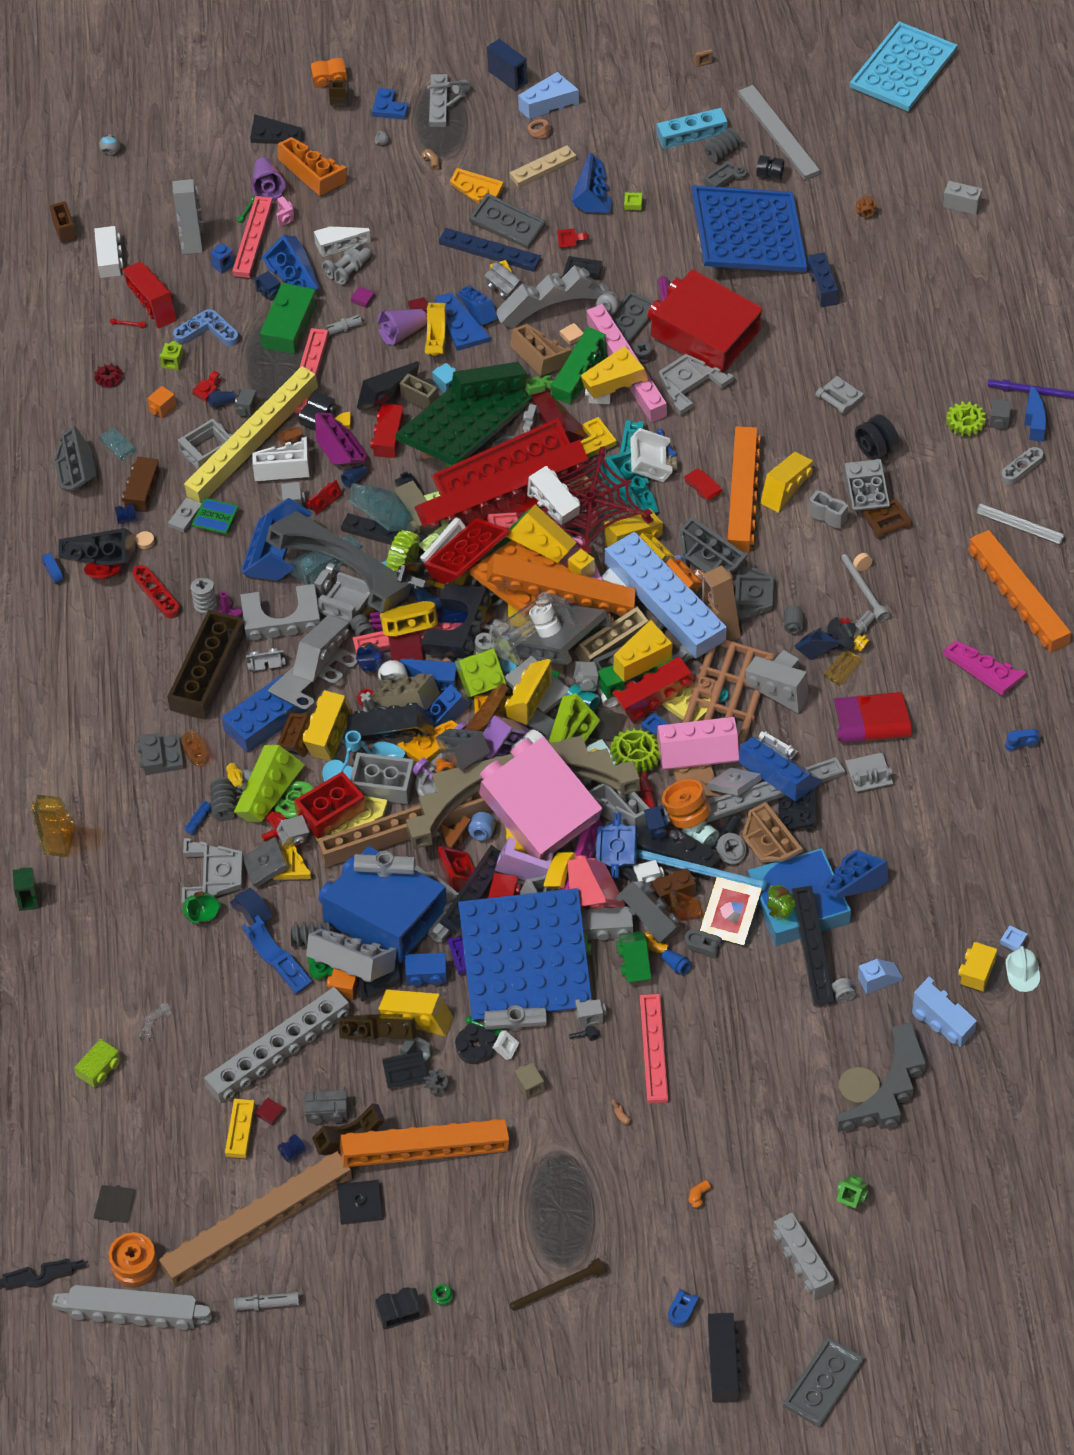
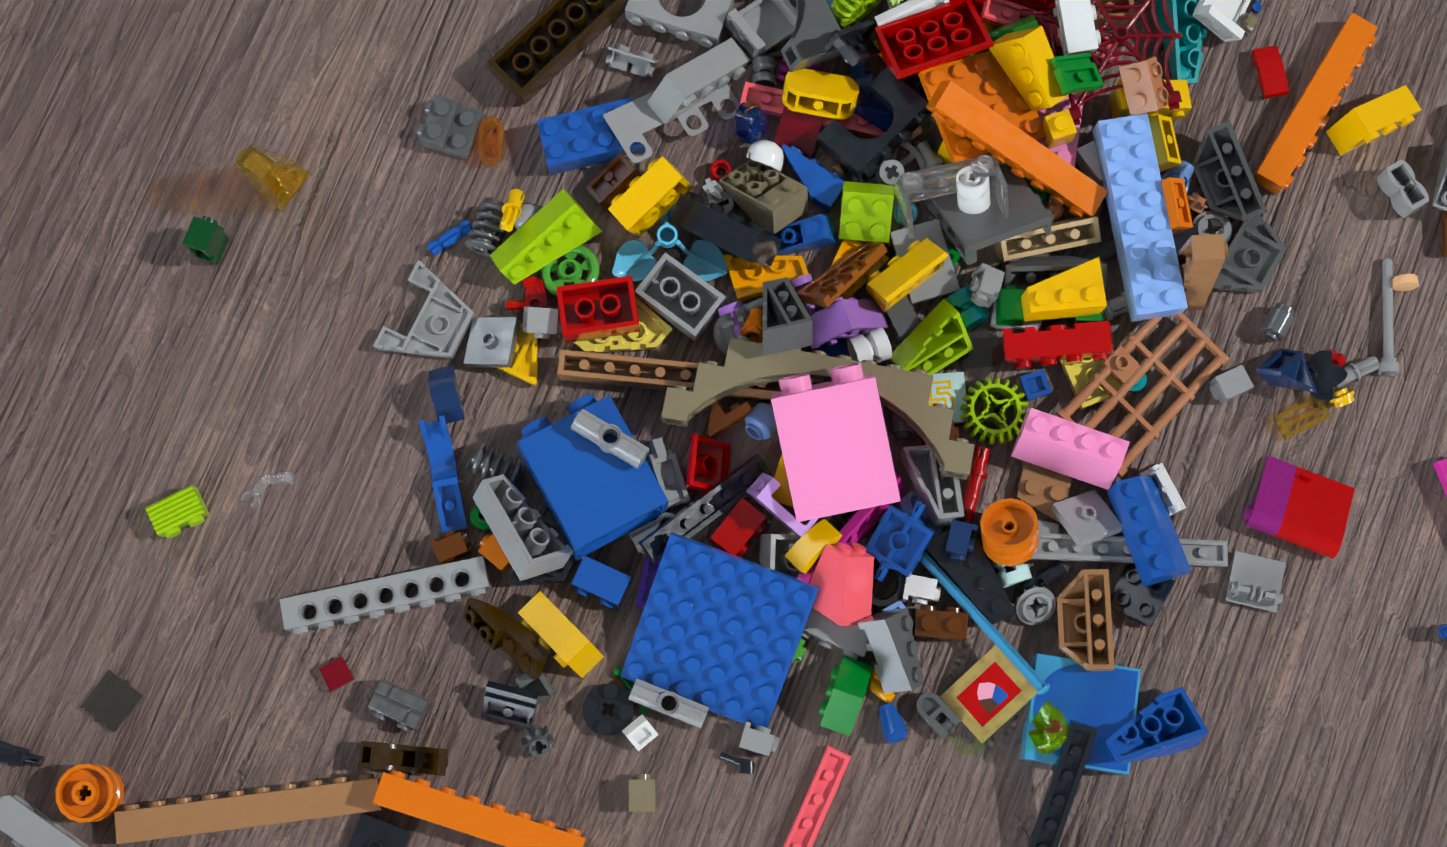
camera: 25 degrees right, 25 degrees up
(200, 908) = (389, 366): green hair -> none
(240, 1128) = (291, 681): yellow plate -> none
(291, 1148) = (333, 739): clear blue wheel -> none
(306, 994) = (451, 546): none -> reddish brown brick
(574, 526) = (1076, 73): none -> green plate
(622, 515) = (1144, 86): none -> nougat bracket
(684, 906) = (940, 655): clear orange slope -> none
(778, 682) = (1211, 407): light grey wedge -> none

